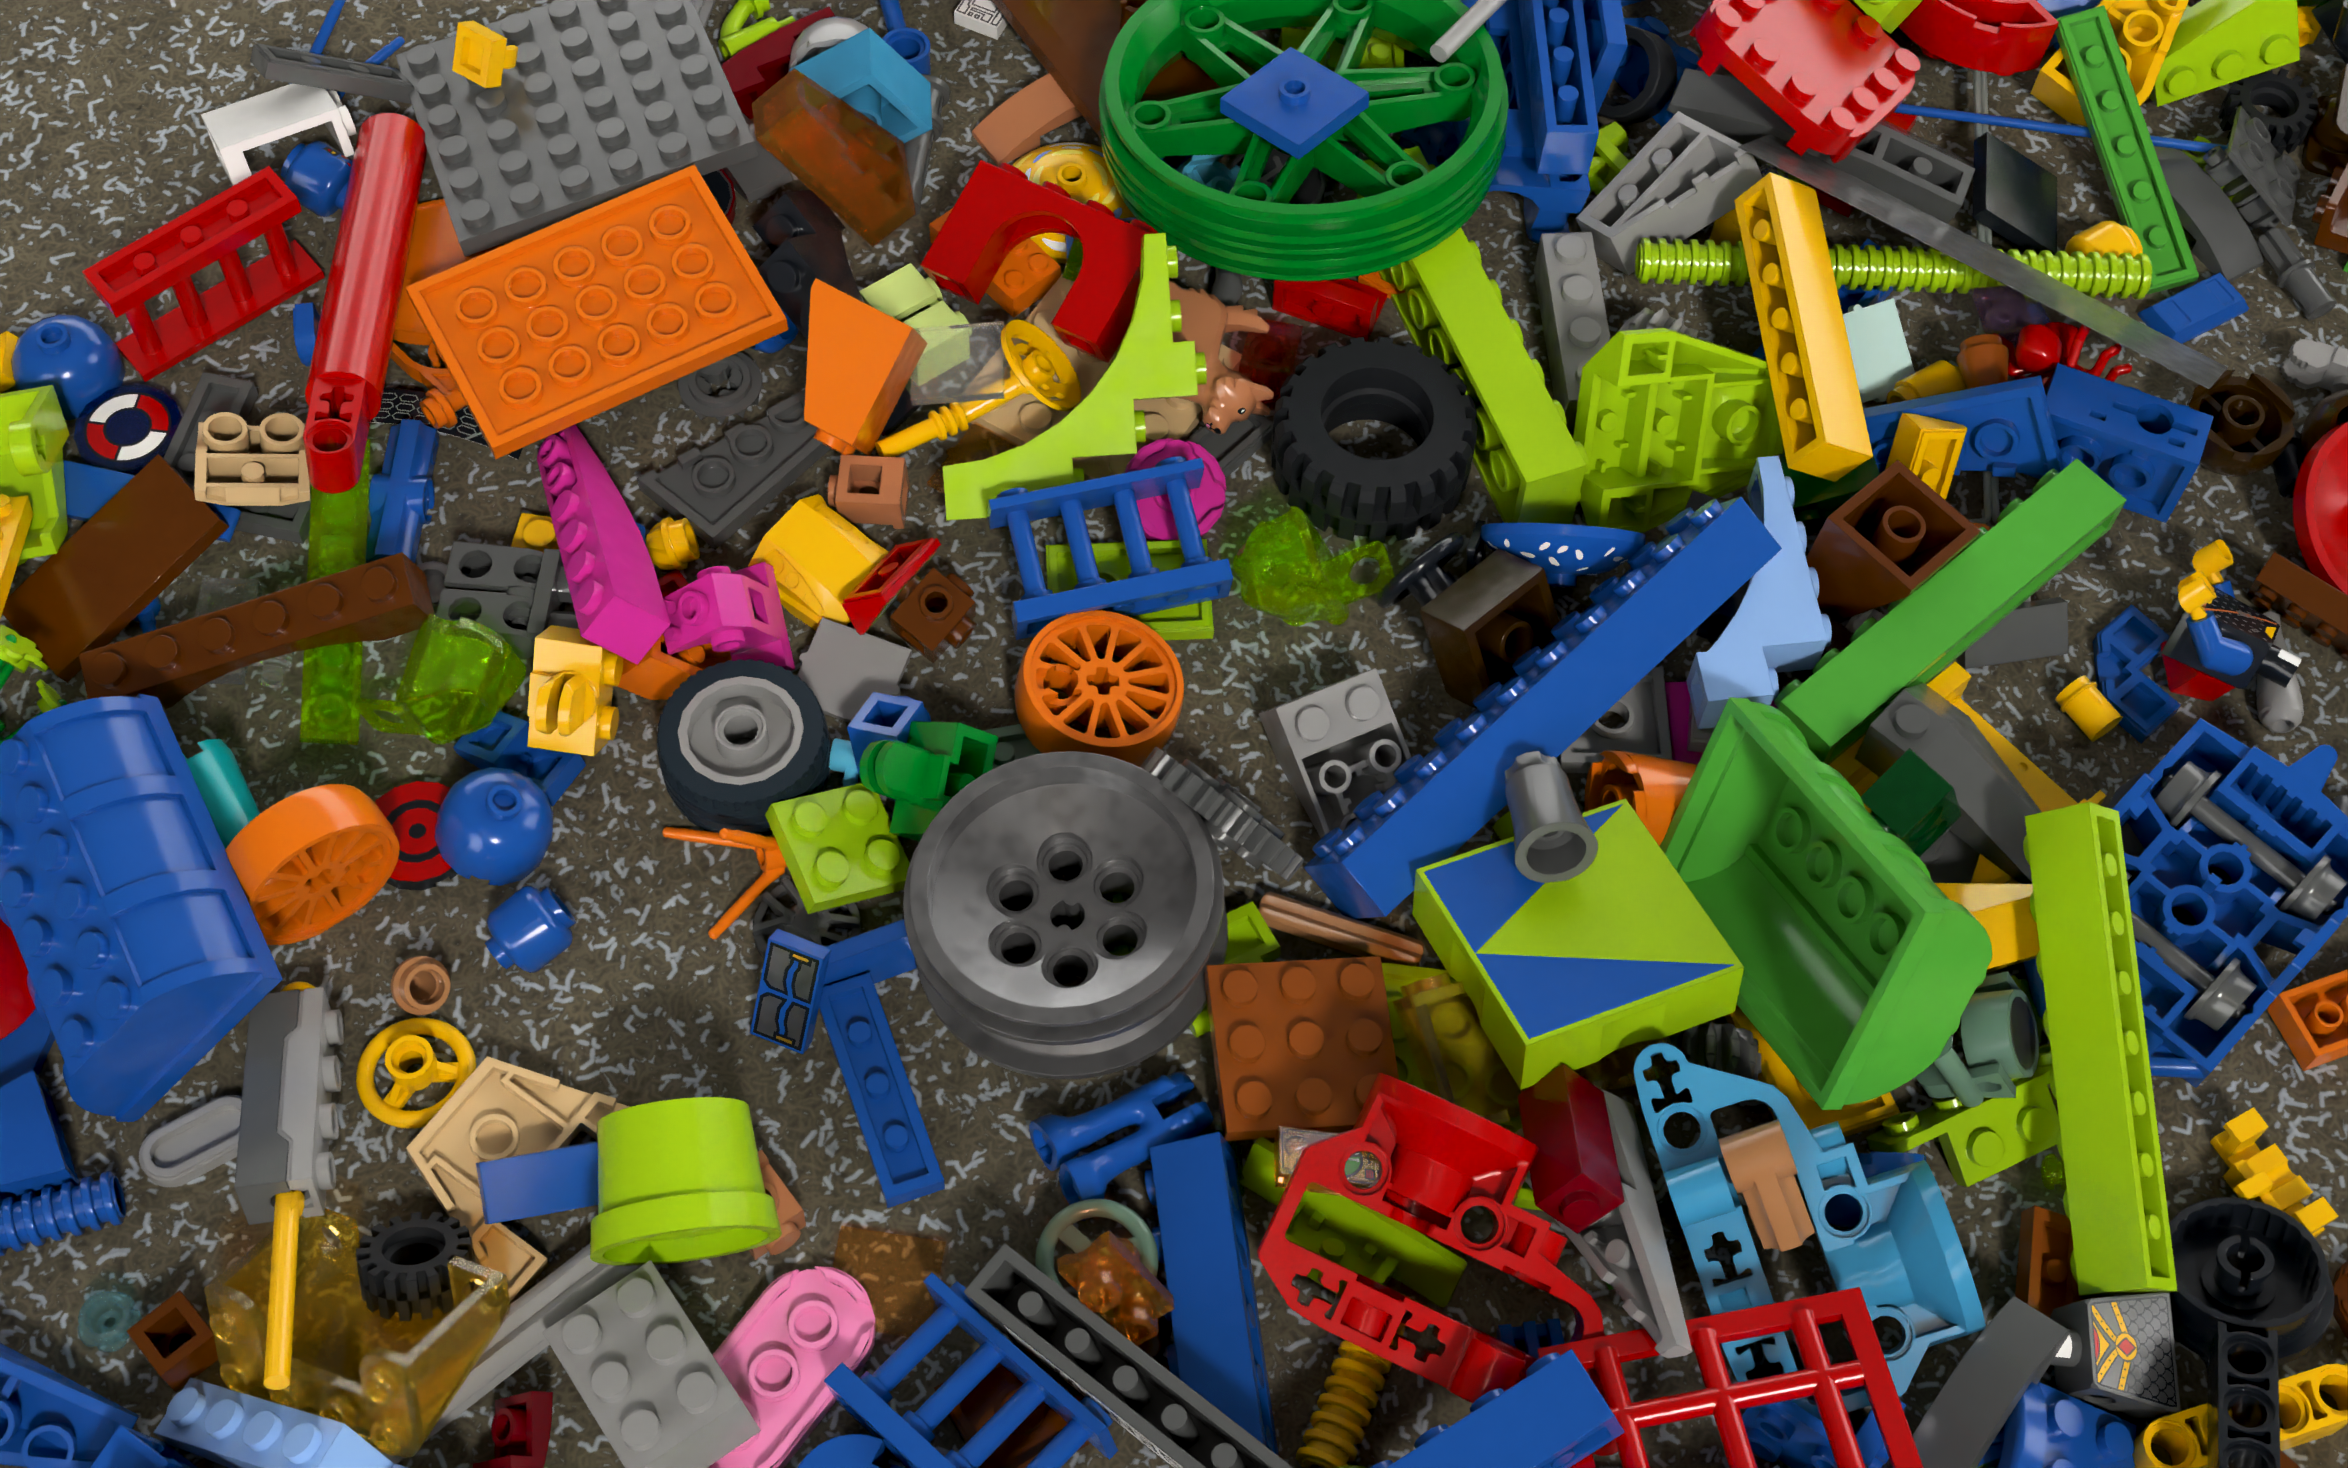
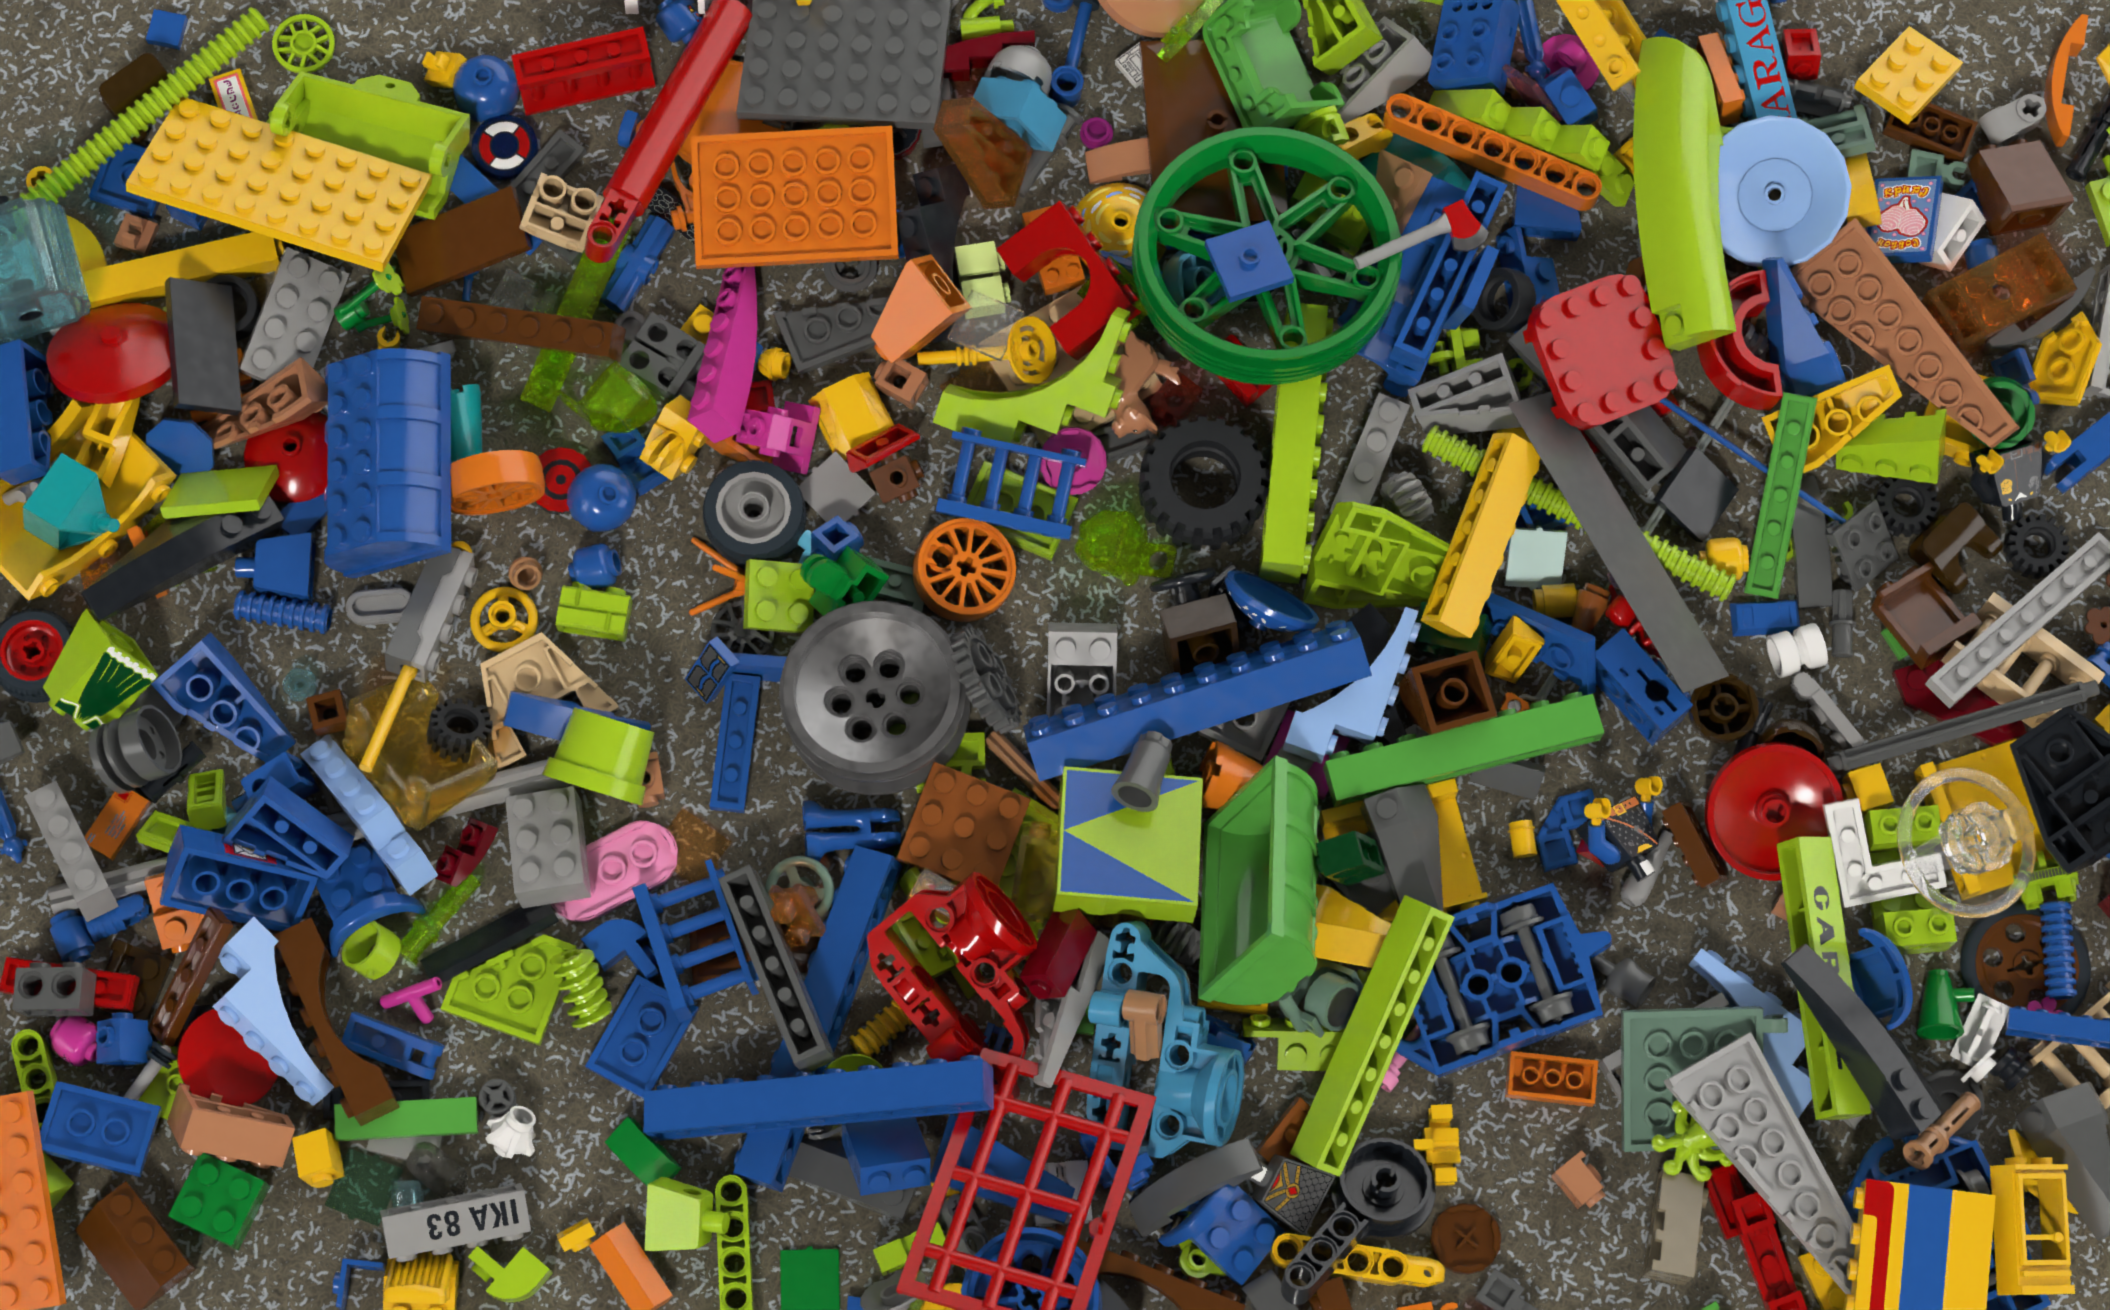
camera: 25 degrees right, 15 degrees up
(558, 995) = (594, 612): none -> lime brick
(974, 100) = (1096, 133): none -> magenta plate
(2269, 321) = (1802, 648): none -> white wheel

